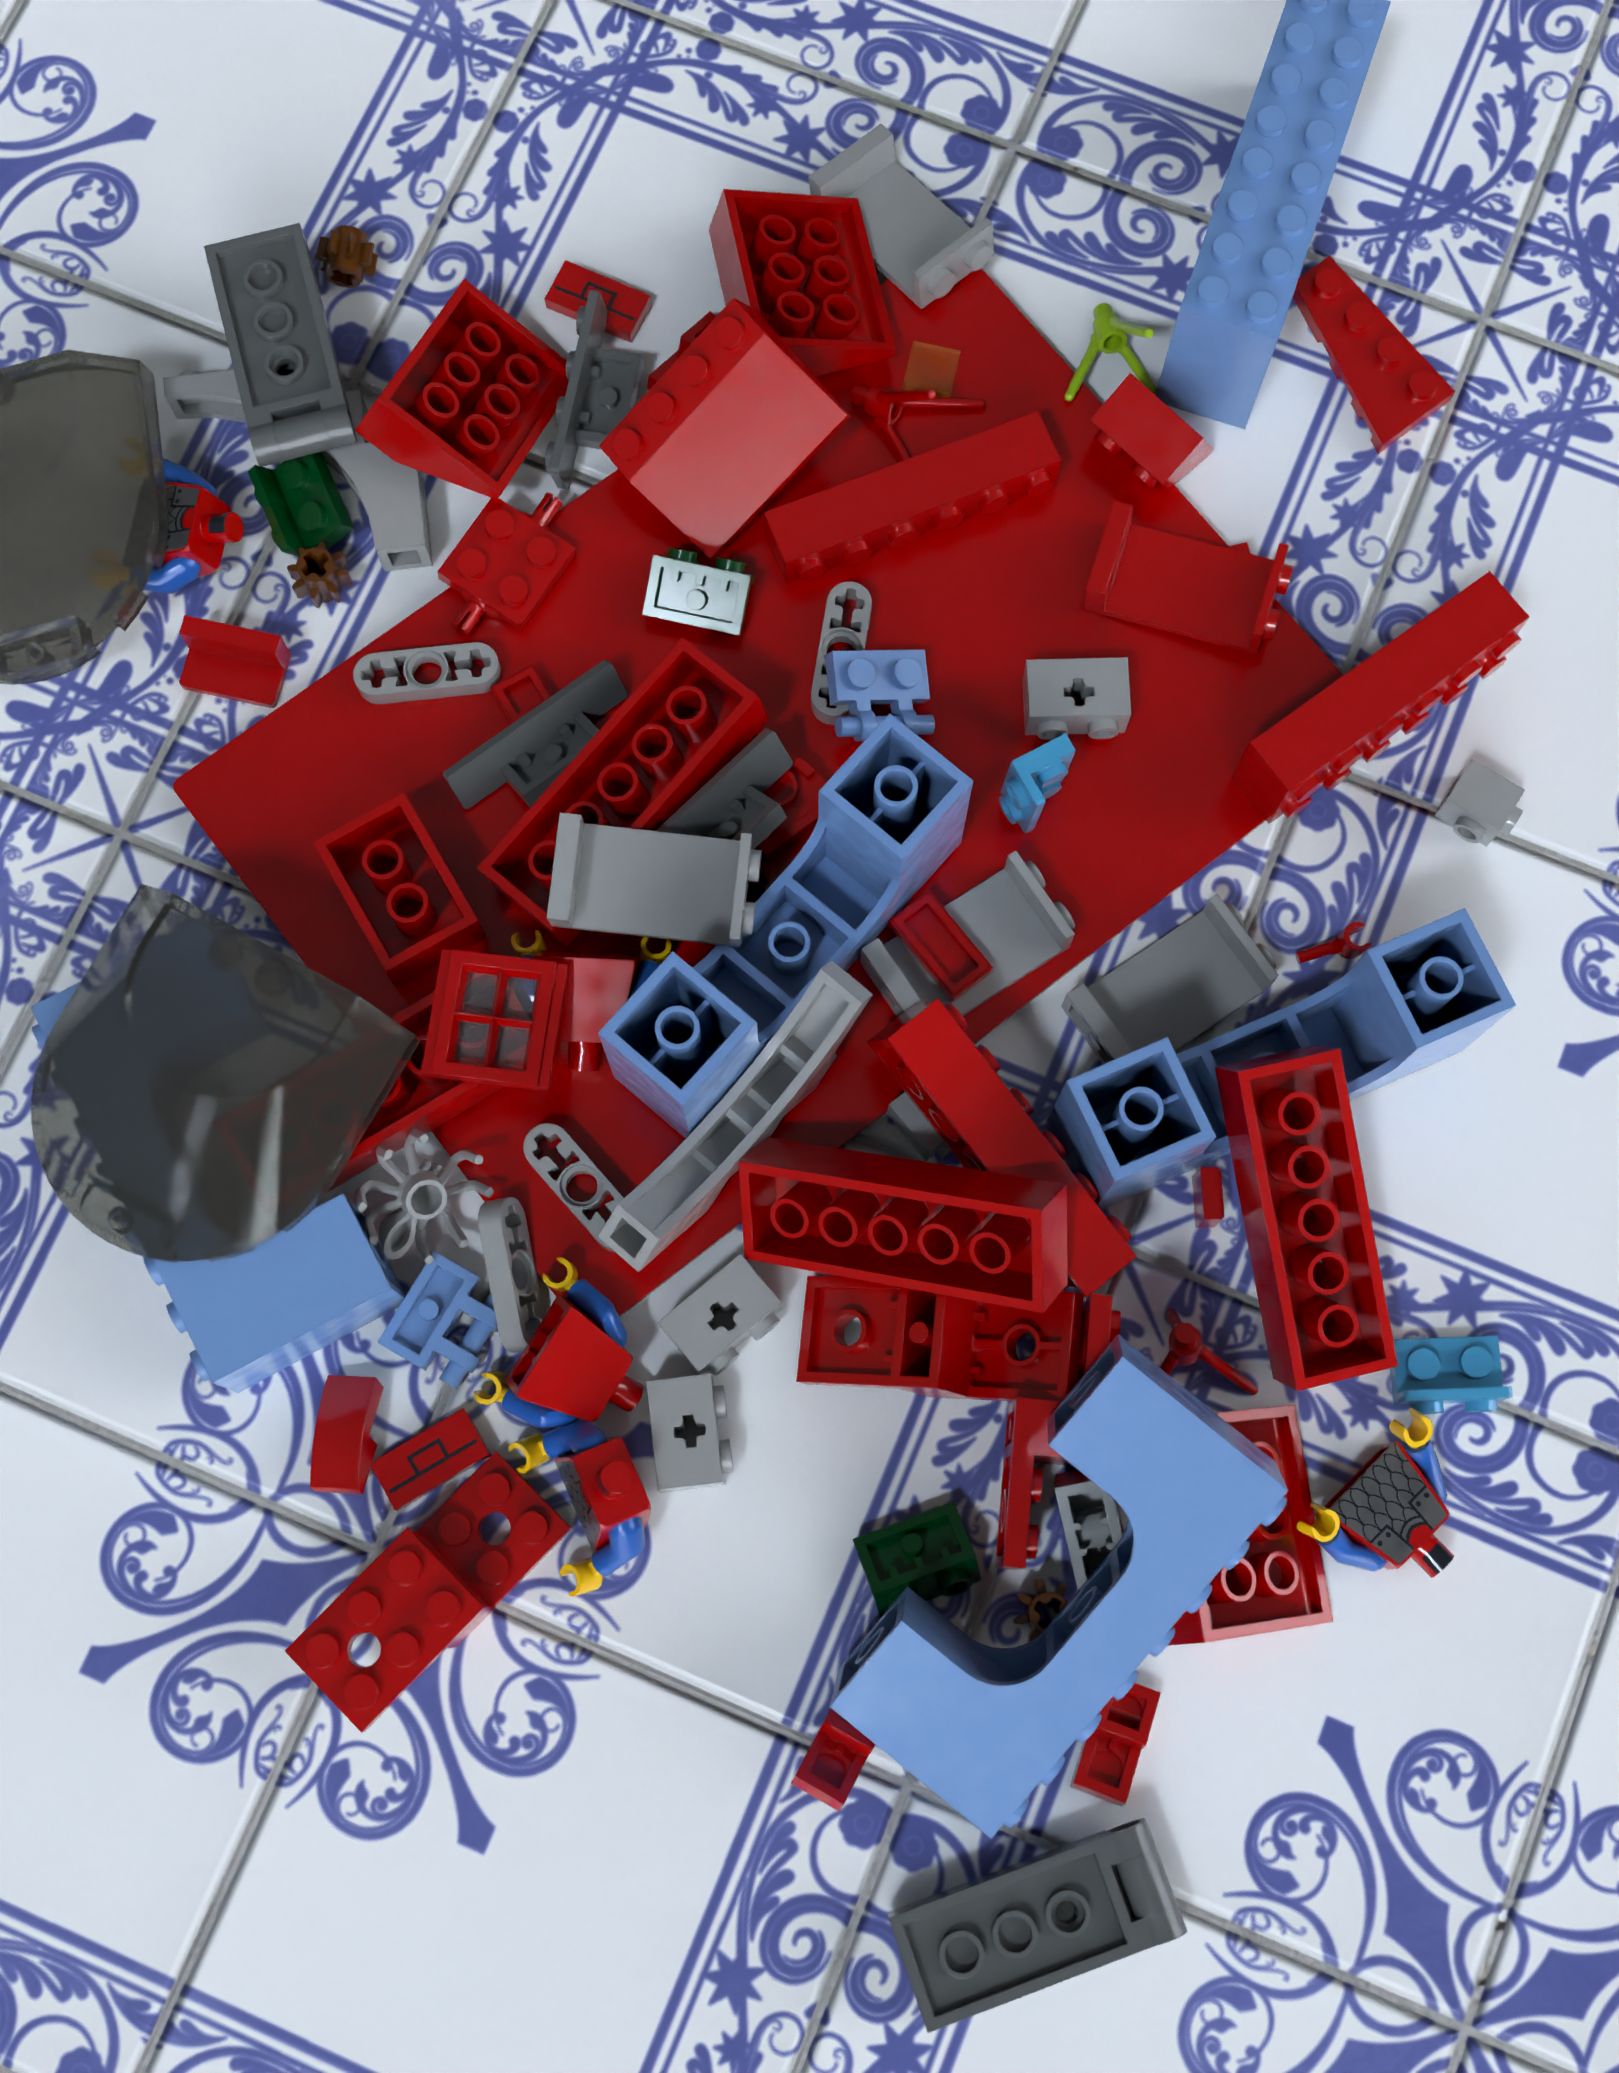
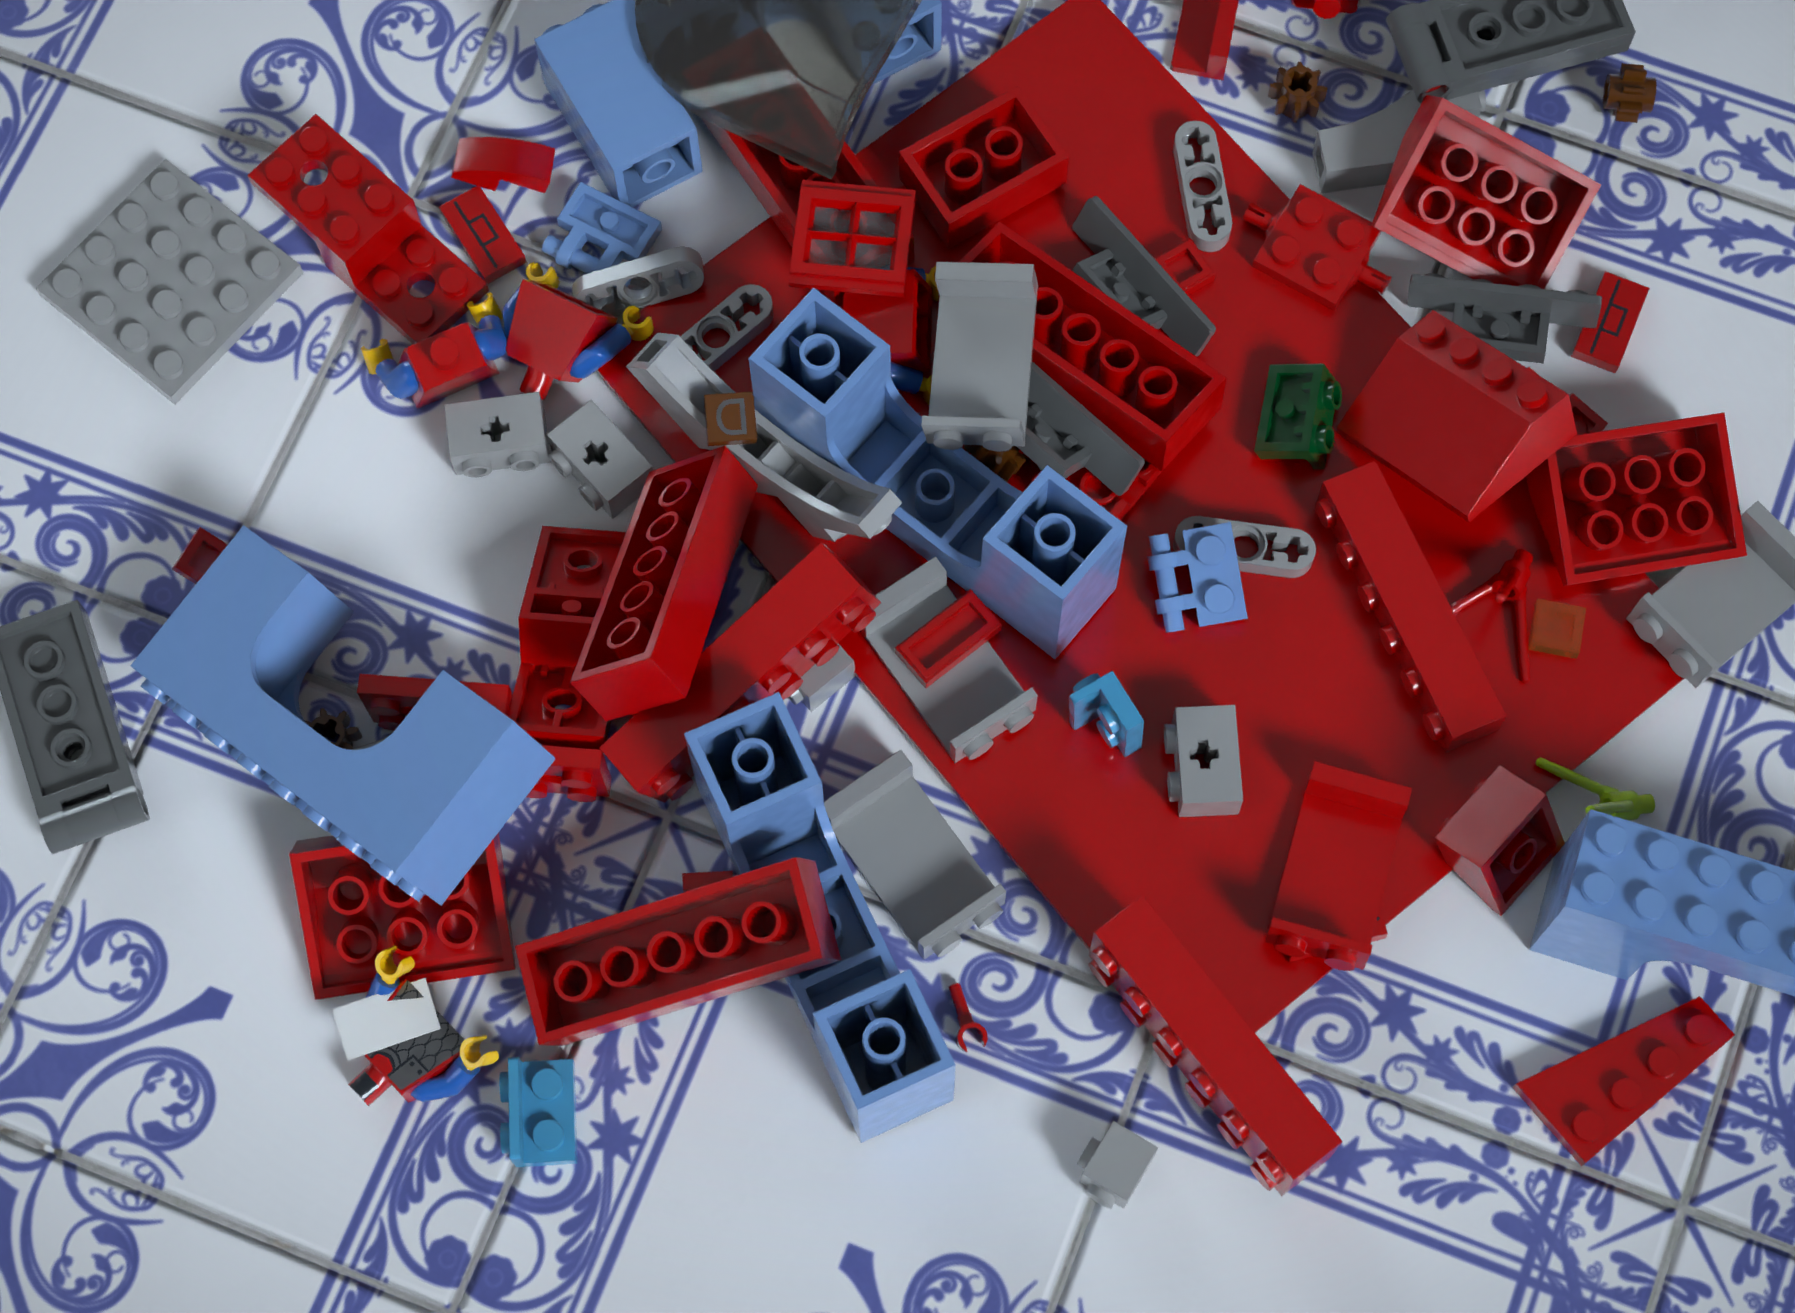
camera: 90 degrees right, 5 degrees down
(301, 503) = (1362, 71): dark green bracket -> none
(419, 1196) = (700, 199): light grey animal -> none
(467, 1838) = (170, 281): none -> light grey plate
(710, 1153) = (730, 418): none -> reddish brown tile
(920, 1552) = (383, 628): dark green bracket -> none
(1113, 1750) = (219, 802): red slope -> none
(1187, 1348) = (558, 851): red plant -> none
(1376, 1537) = (380, 1023): none -> white sticker

